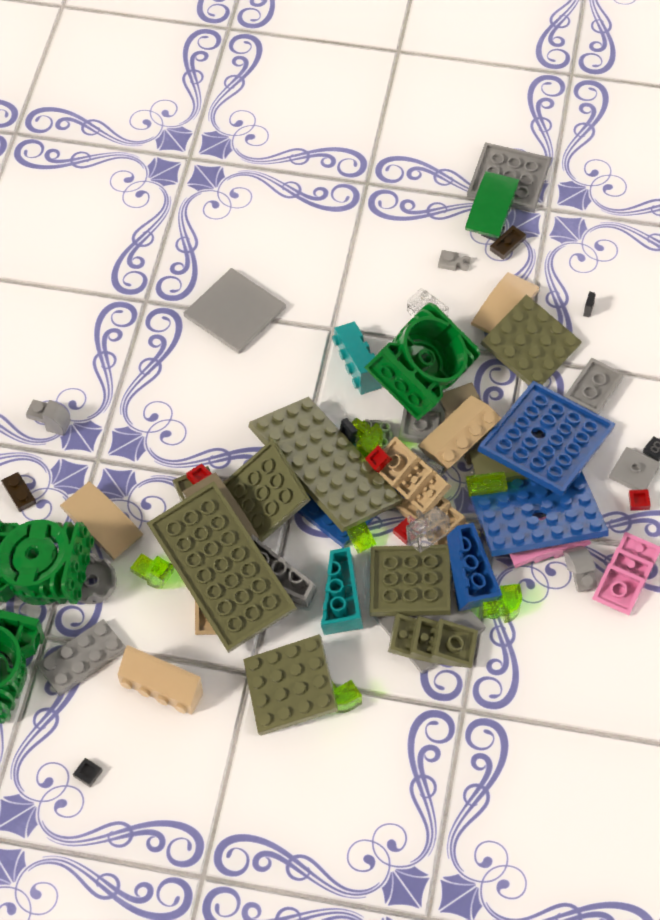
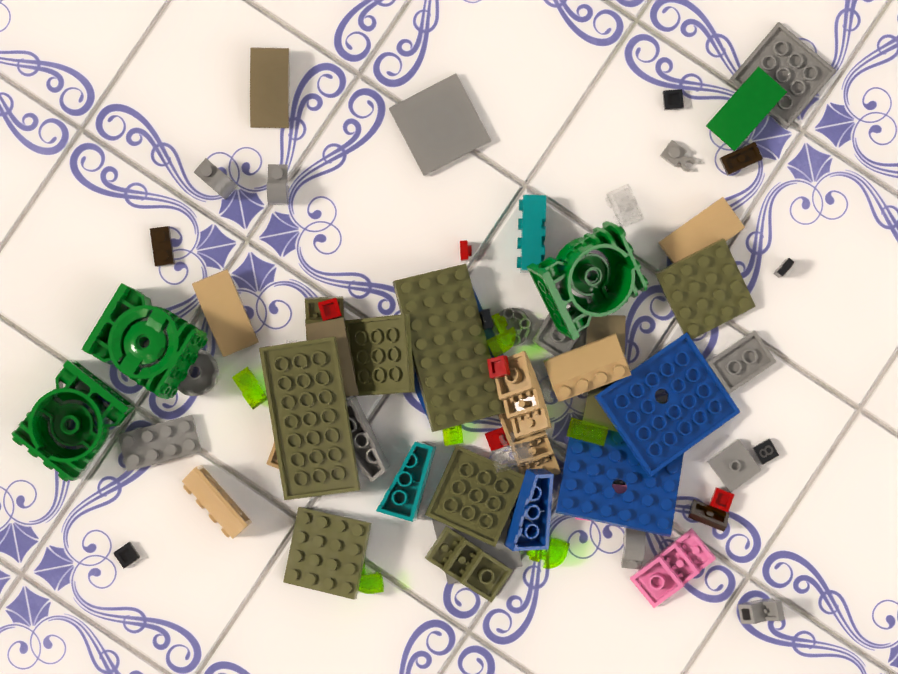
camera: 25 degrees right, 30 degrees up
(69, 333) = (269, 87): none -> dark tan slope
(109, 401) = (277, 184): none -> light grey brick
(301, 389) = (465, 250): none -> red plate
(427, 224) = (673, 99): none -> black tile
(626, 517) = (708, 515): none -> dark brown plate

